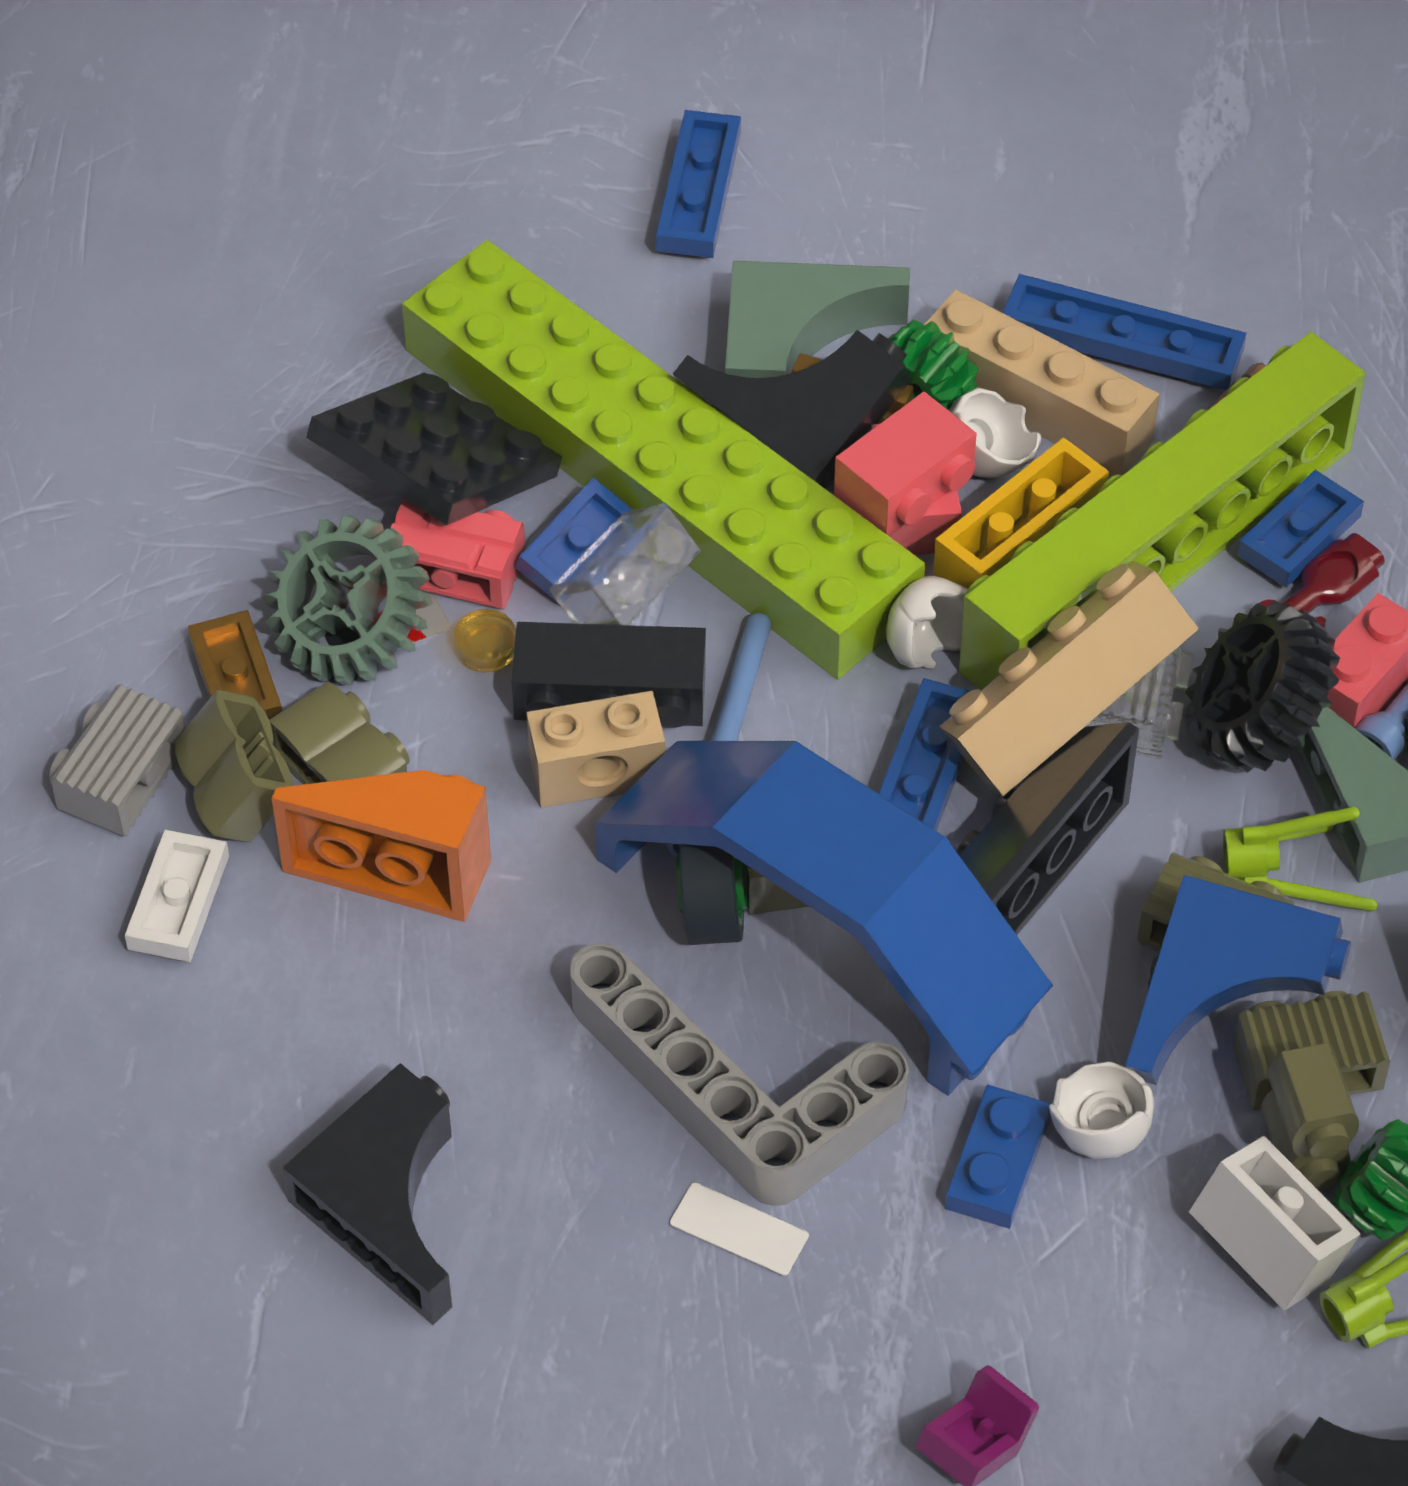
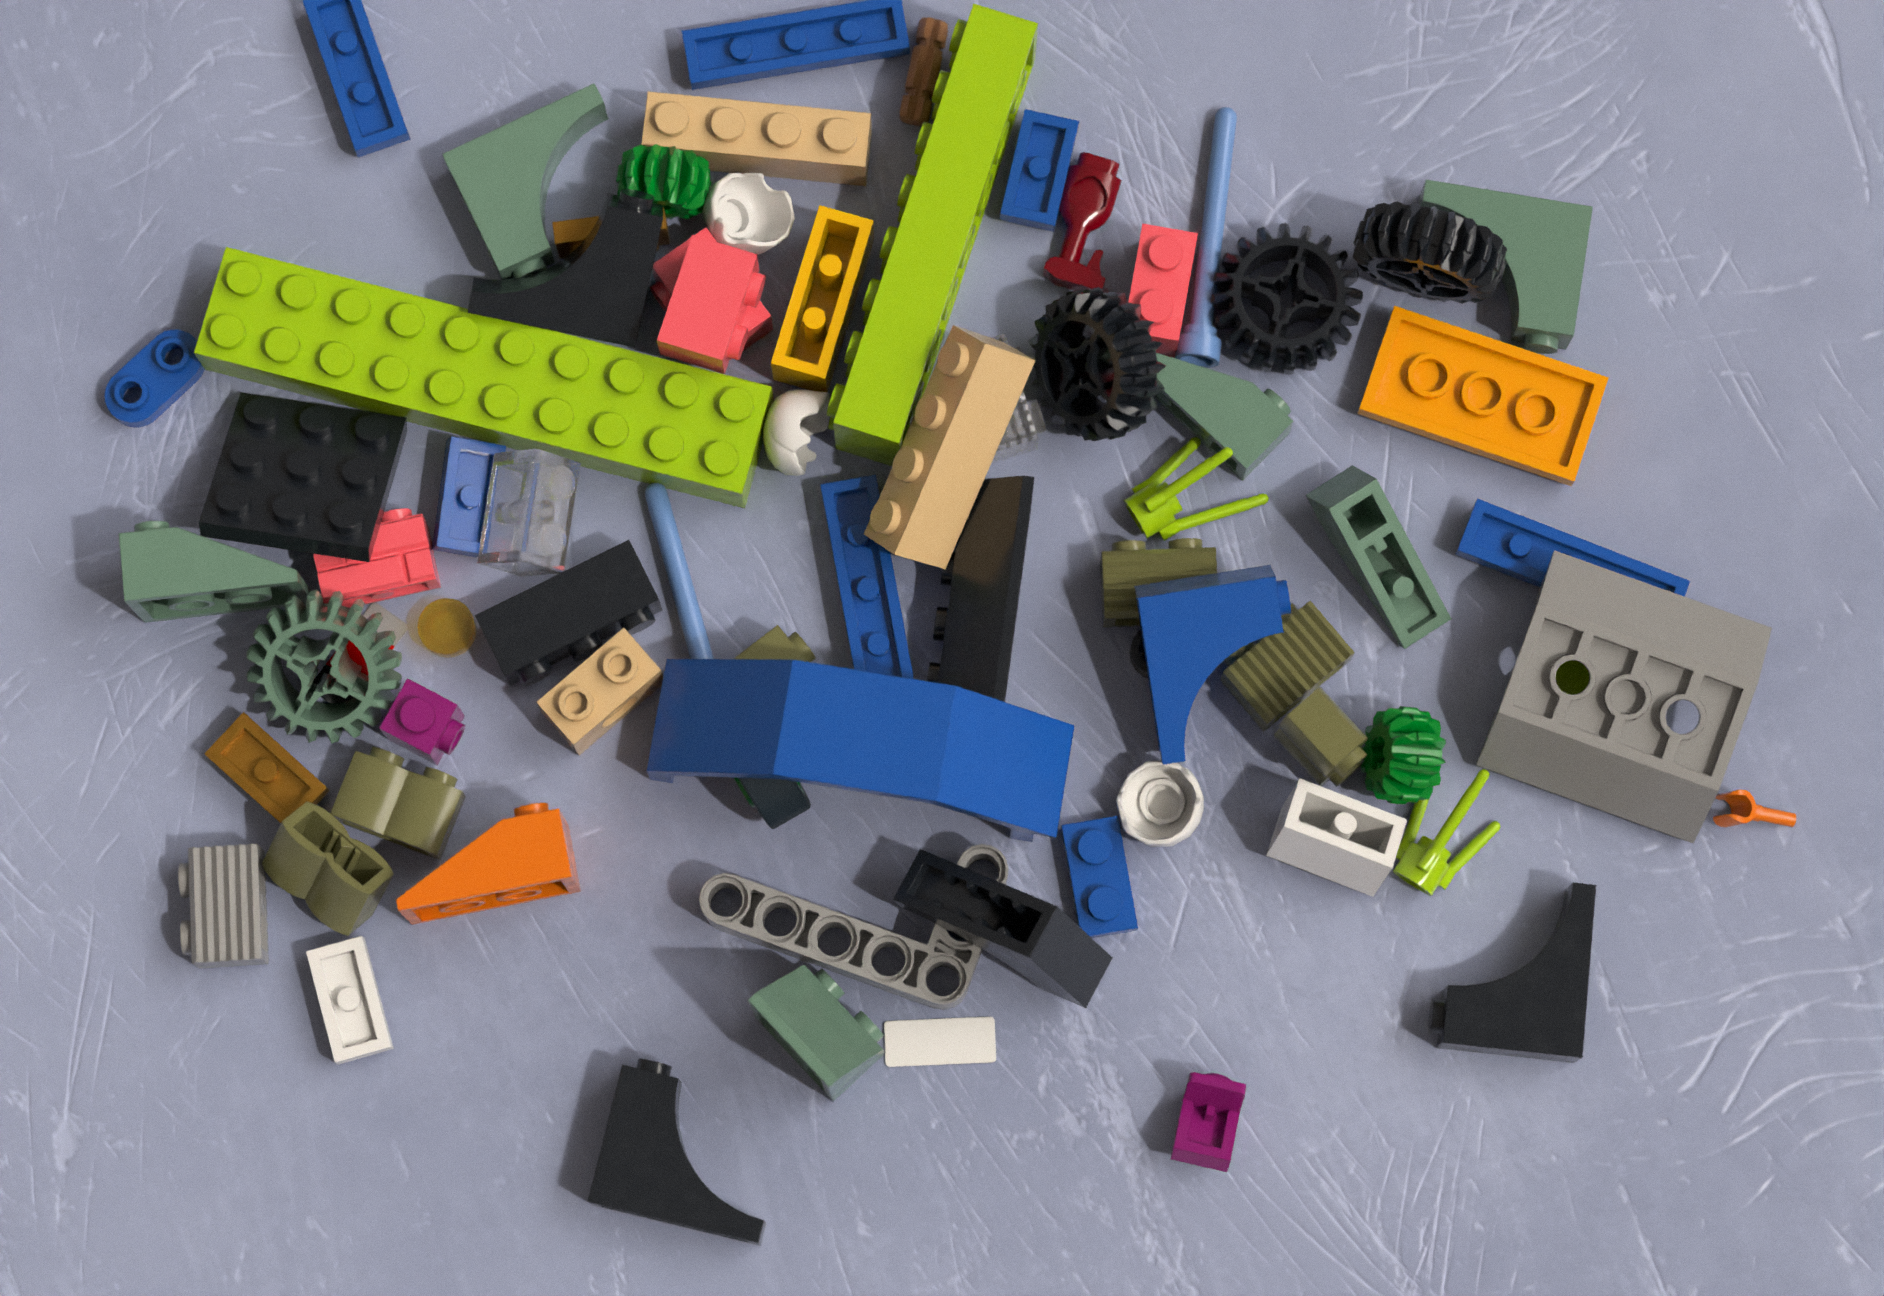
camera: 30 degrees left, 25 degrees up
(277, 471) = (190, 576): none -> sand green slope
(352, 333) = (159, 381): none -> blue plate
(408, 693) = (424, 722): none -> magenta brick
(614, 1127) = (817, 1030): none -> sand green slope
(883, 1128) = (1008, 924): none -> black arch

